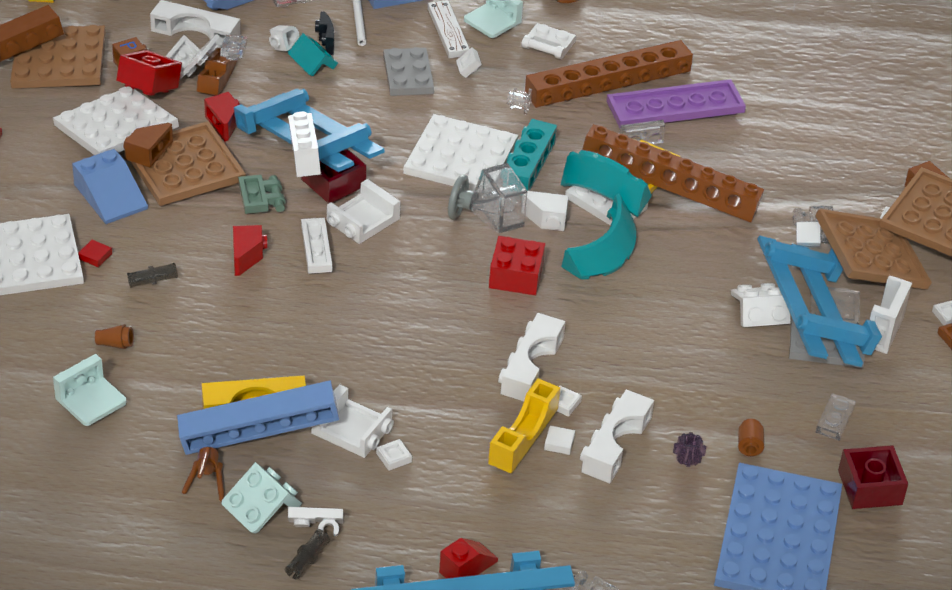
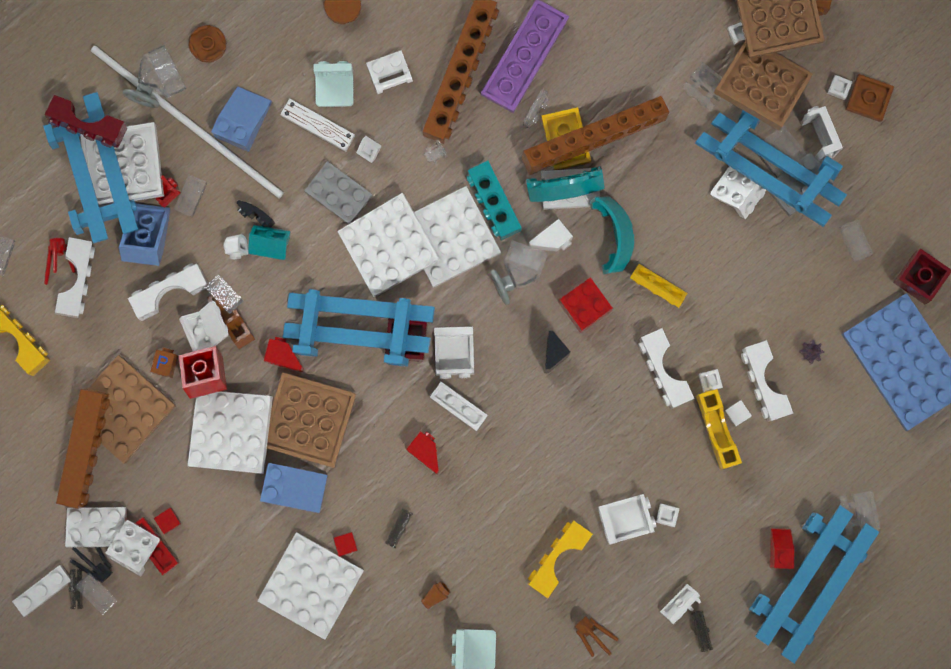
camera: 40 degrees left, 40 degrees up
(148, 143) = (280, 437): dark orange slope -> none
(254, 195) = (378, 403): sand green plate -> none
(258, 417) = (586, 577): medium blue brick -> none
(258, 497) = (640, 621): light aqua bracket -> none
(304, 144) = (392, 358): white arch -> none
(407, 116) = (388, 245): none -> white plate
(442, 266) = (555, 352): none -> black slope
(601, 304) = (658, 285): none -> yellow plate
(751, 437) = (832, 308): dark orange brick -> none
(808, 234) = (715, 106): white tile -> none

